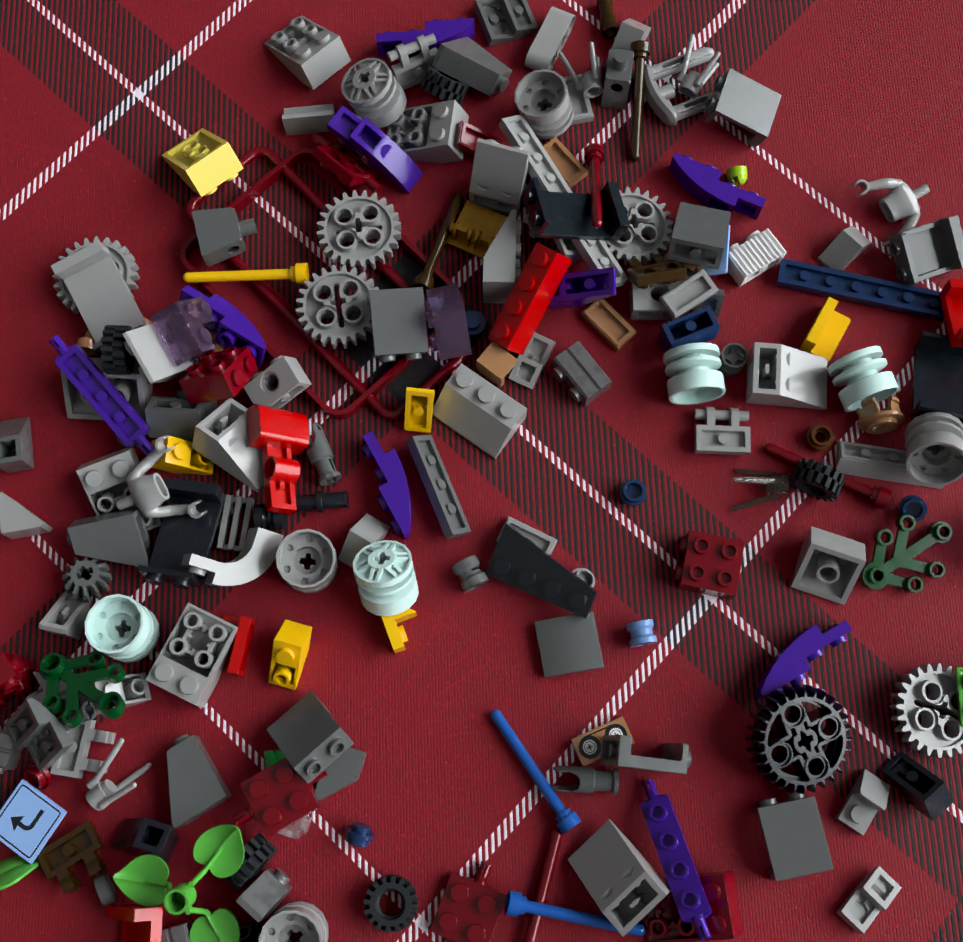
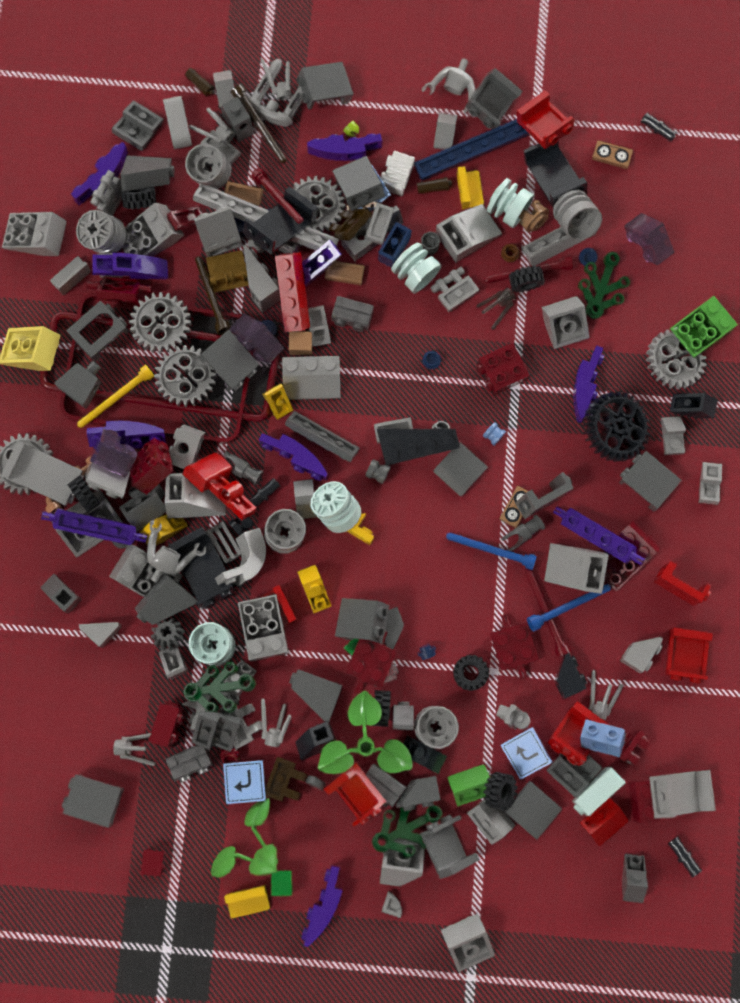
camera: 40 degrees left, 5 degrees up
(308, 202) = (115, 331): none -> dark grey panel
(785, 299) = (434, 185): none -> dark brown piece

